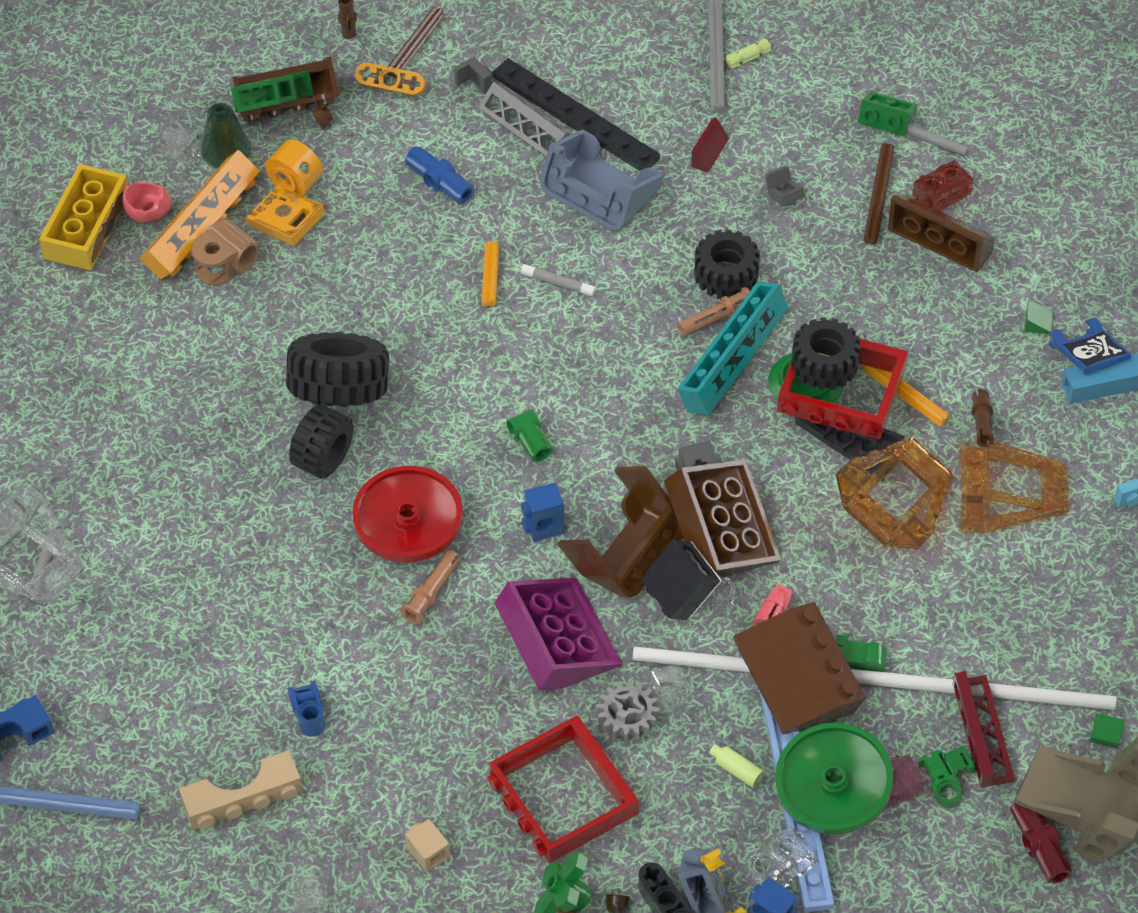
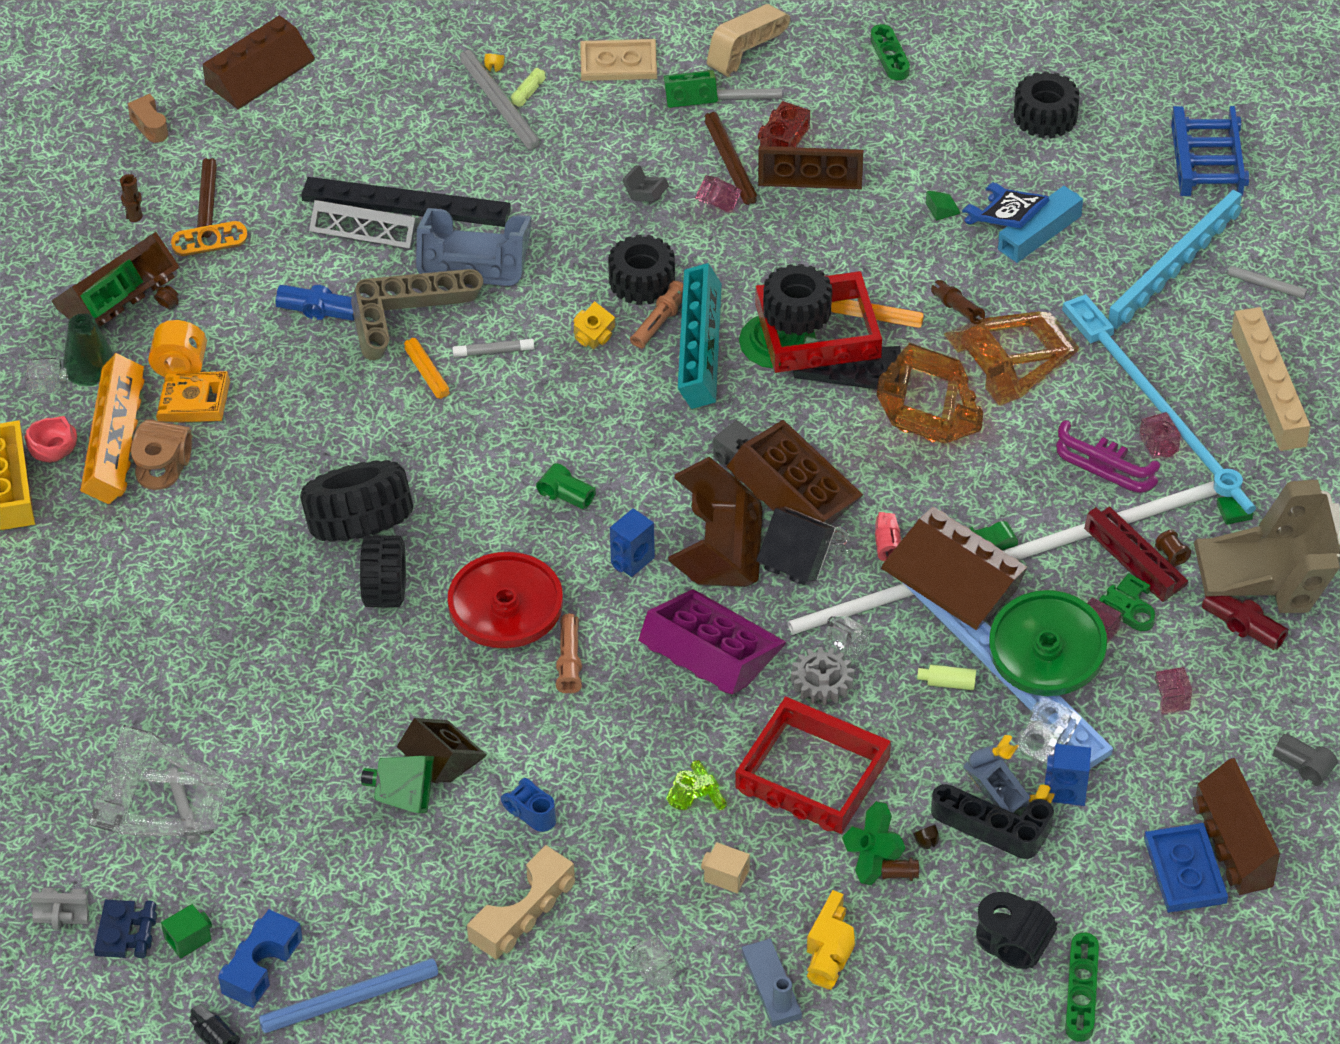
camera: 30 degrees left, 5 degrees down
(214, 636) = (402, 782): none -> torso
(268, 621) = (449, 746): none -> dark brown slope
(451, 759) = (694, 785): none -> clear neon green piece
(473, 71) = (288, 201): dark grey bracket -> none
(508, 204) = (405, 298): none -> dark tan beam
(649, 298) = (593, 326): none -> yellow brick
(709, 146) = (551, 179): dark red slope -> none
(734, 18) = (494, 59): none -> yellow hinge
(843, 223) = (718, 193): none -> clear pink panel
(844, 60) = (618, 59): none -> tan tile
(924, 876) = (1174, 690): none -> clear pink panel
(965, 81) = (744, 33): none -> tan beam
(1016, 629) = (1105, 461): none -> magenta piece
(1021, 741) = (1172, 547): none -> reddish brown bush
(1086, 620) = (1160, 435): none -> clear pink brick
(1087, 145) = (890, 44): none -> green beam
(1097, 499) = (1097, 327): none -> medium azure bar

